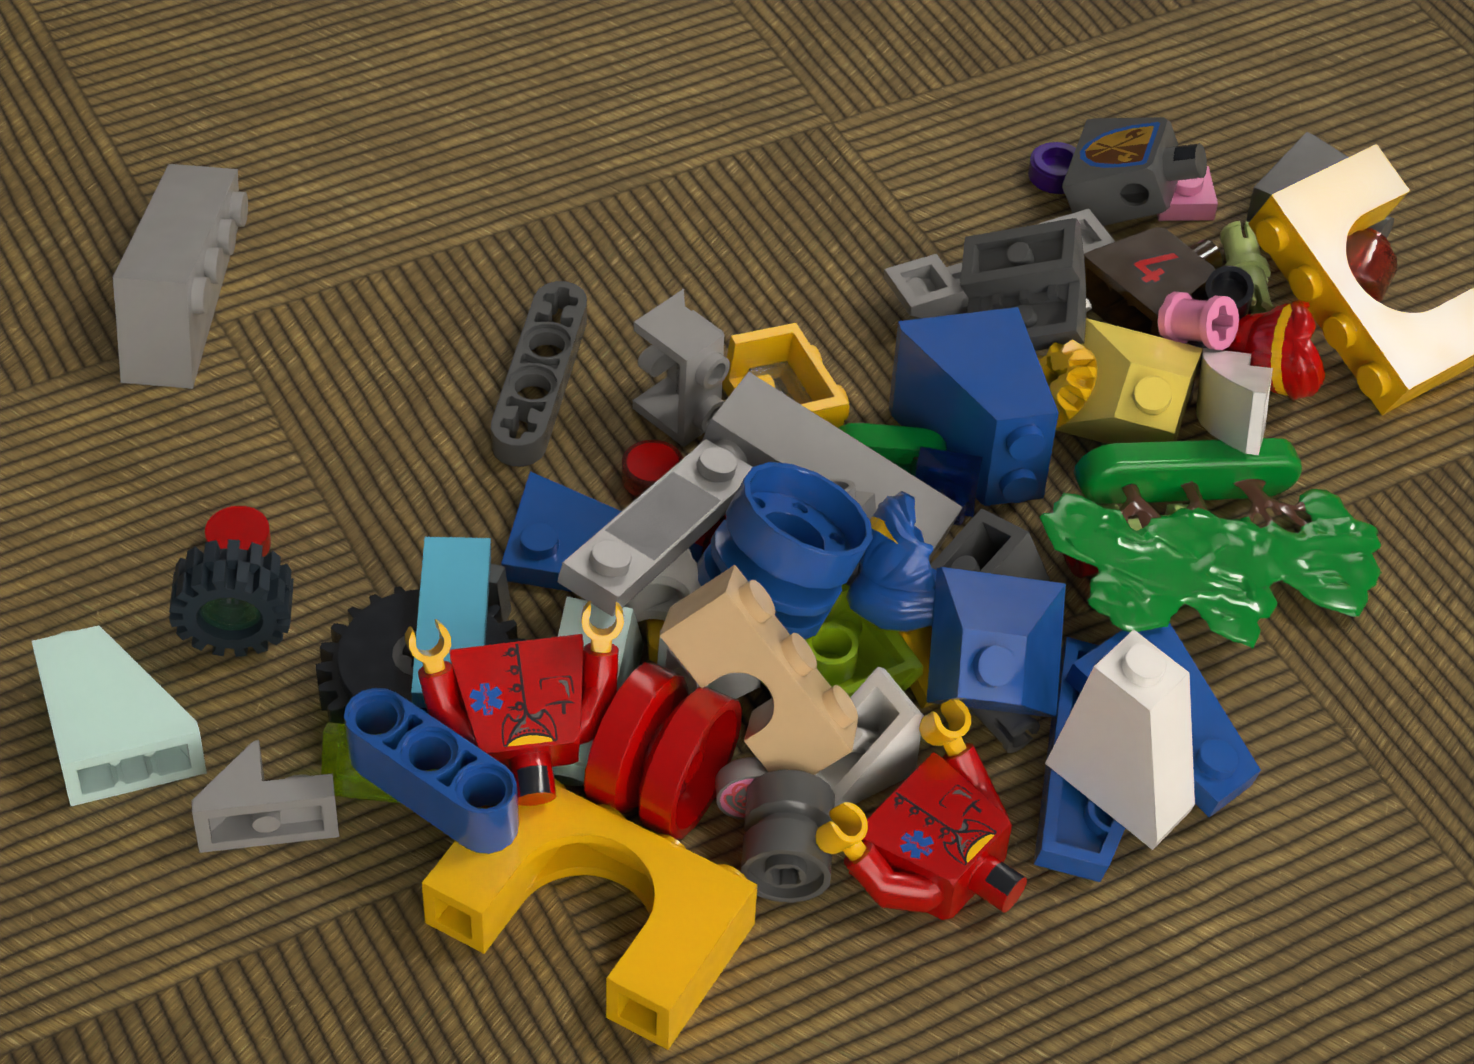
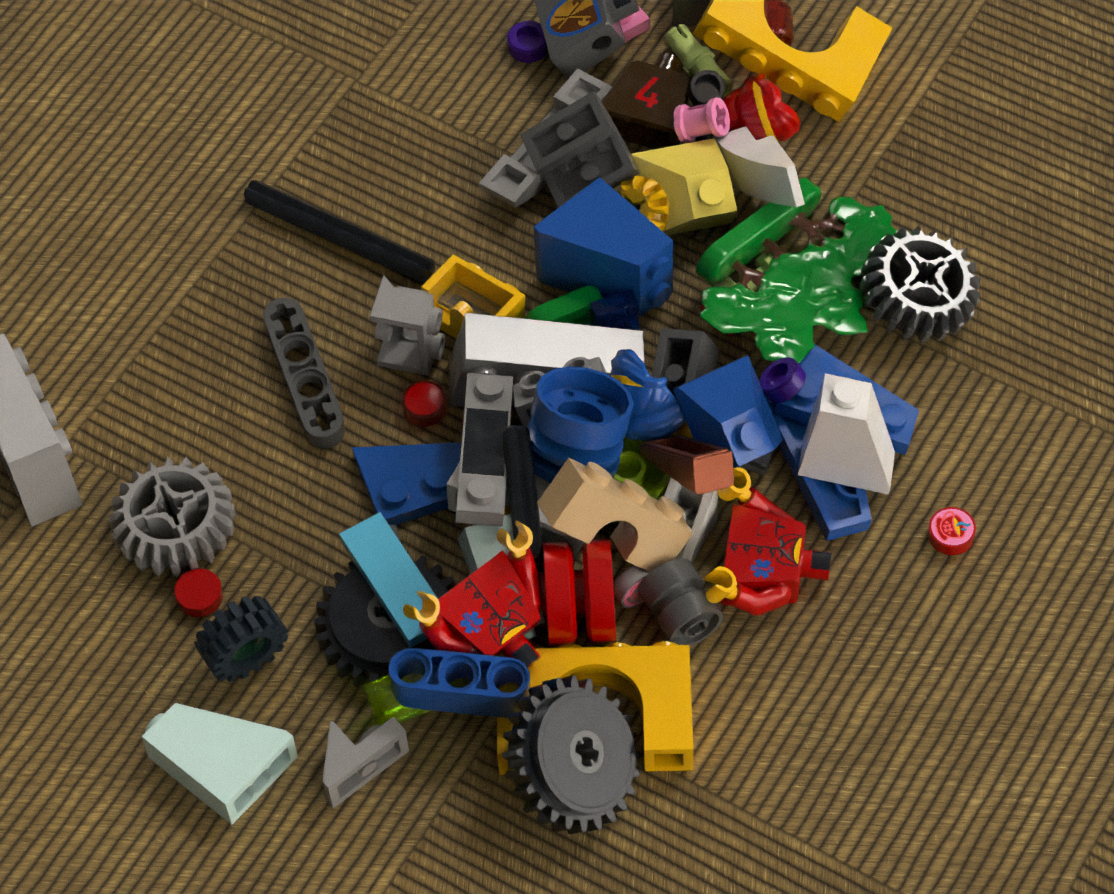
camera: 25 degrees left, 10 degrees up
(269, 440) = (152, 536): none -> light grey gear
(461, 932) = (571, 755): none -> gear
(665, 587) = (522, 484): none -> black axle
(690, 248) = (339, 231): none -> black axle
(904, 668) = (691, 462): none -> copper slope
(1093, 637) = (782, 380): none -> dark purple tile
(1211, 940) = (951, 531): none -> tile
(1348, 643) = (922, 307): none -> dark grey gear

